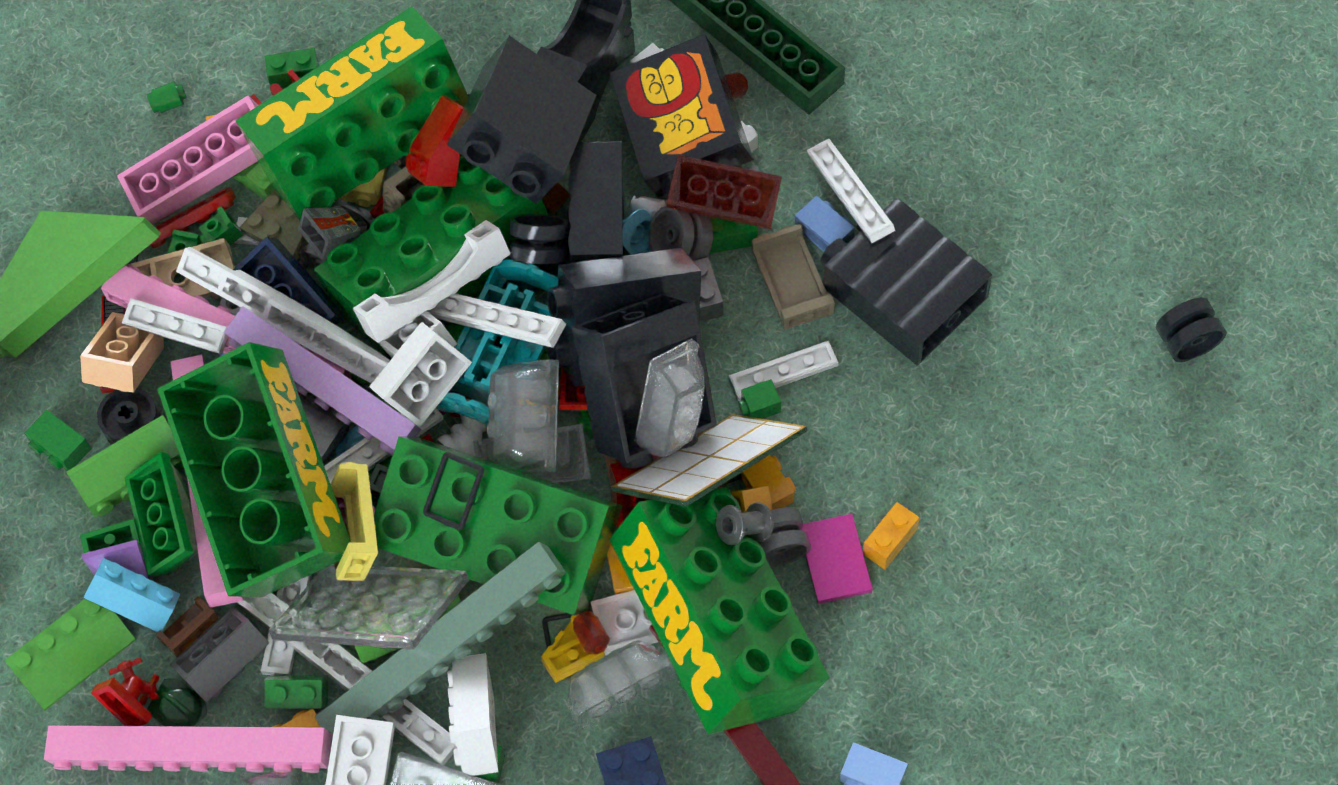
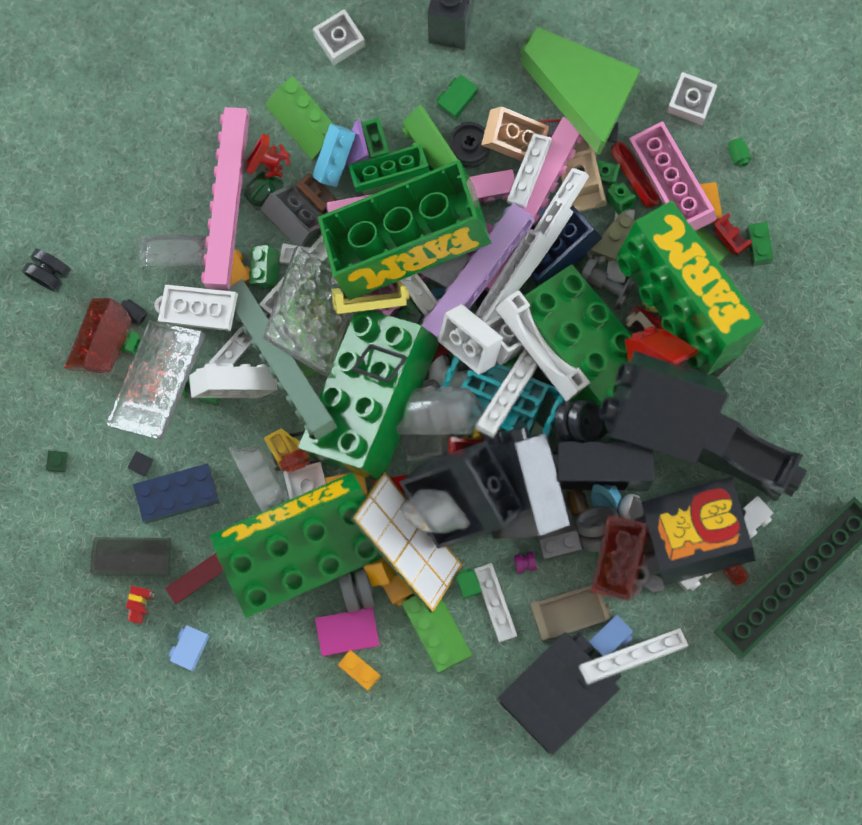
camera: 90 degrees right, 15 degrees up
(87, 149) = (692, 98): none -> white brick
(329, 228) = (603, 275): dark grey torso -> none
(727, 332) = (526, 562): none -> magenta wheel
(755, 522) = (348, 555): flat silver hose -> none
(832, 441) = (437, 633): none -> bright green slope

